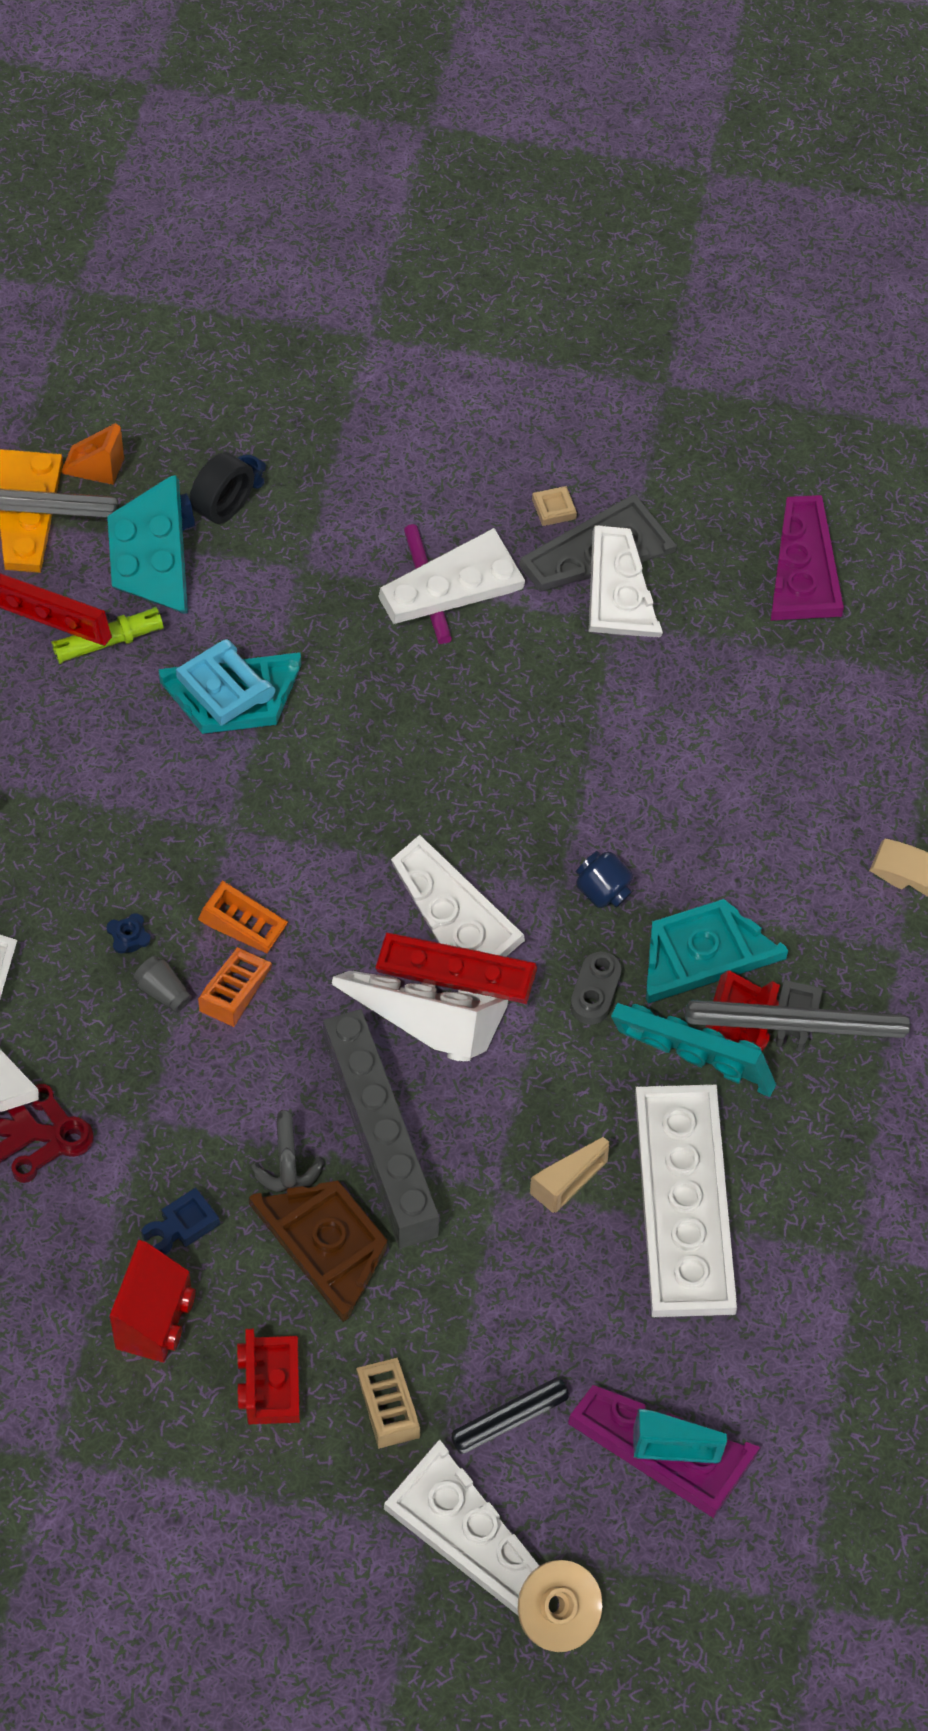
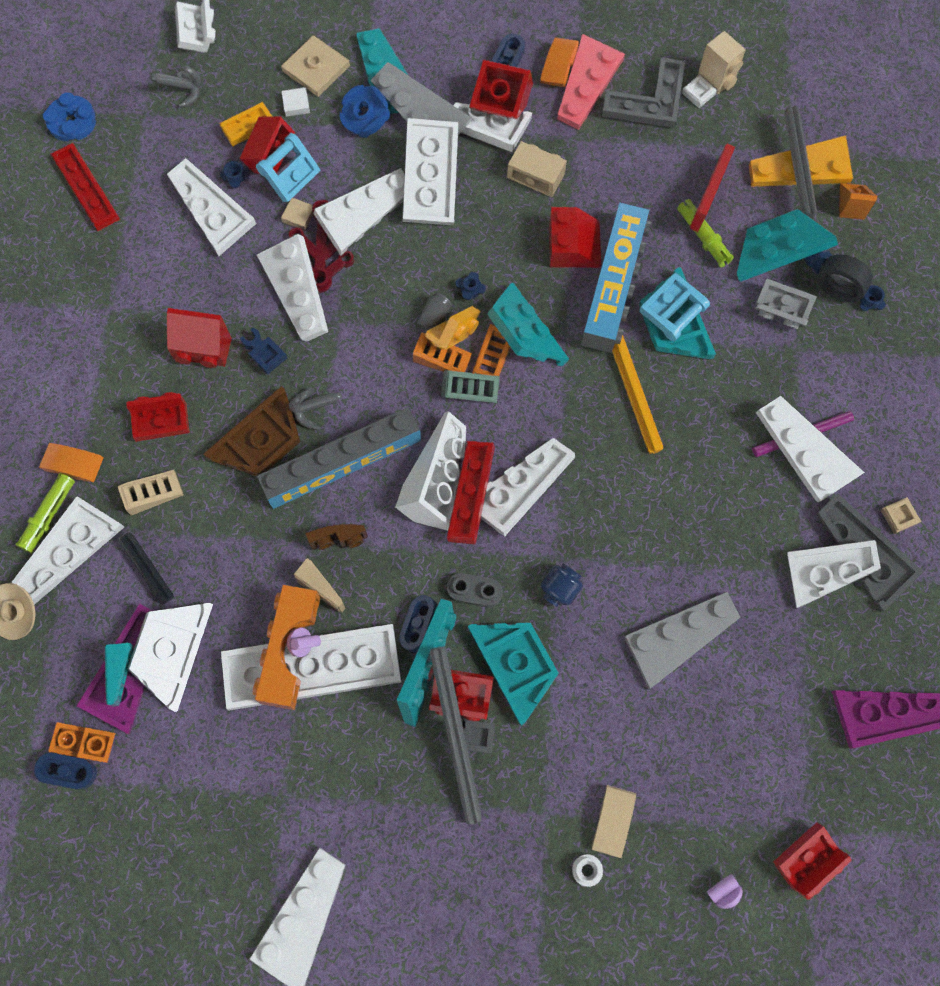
camera: 85 degrees right, 15 degrees up
(71, 1166) = (295, 284): none -> white wing
(81, 795) = (574, 238): none -> red slope
(159, 746) = (615, 278): none -> dark azure brick
(210, 949) = (455, 329): none -> light orange bracket
(213, 871) = (524, 329): none -> teal wing
(237, 565) = (784, 303): none -> light grey bracket
(283, 975) = (447, 385): none -> sand green slope
(323, 1514) = (71, 462): none -> orange slope
(334, 758) = (637, 397): none -> light orange axle
(416, 1566) = (45, 513): none -> lime pin
(498, 1143) = (348, 535): none -> reddish brown slope
(639, 1055) = (416, 623): none -> dark blue plate
(644, 1378) = (168, 650): none -> white wing
(656, 1193) = (301, 642): none -> lavender plate
(687, 768) = (675, 639): none -> light grey wing
(706, 1227) = (295, 609): none -> orange arch
(766, 1516) = (82, 742): none -> orange slope
(806, 1538) = (66, 771): none -> dark blue plate

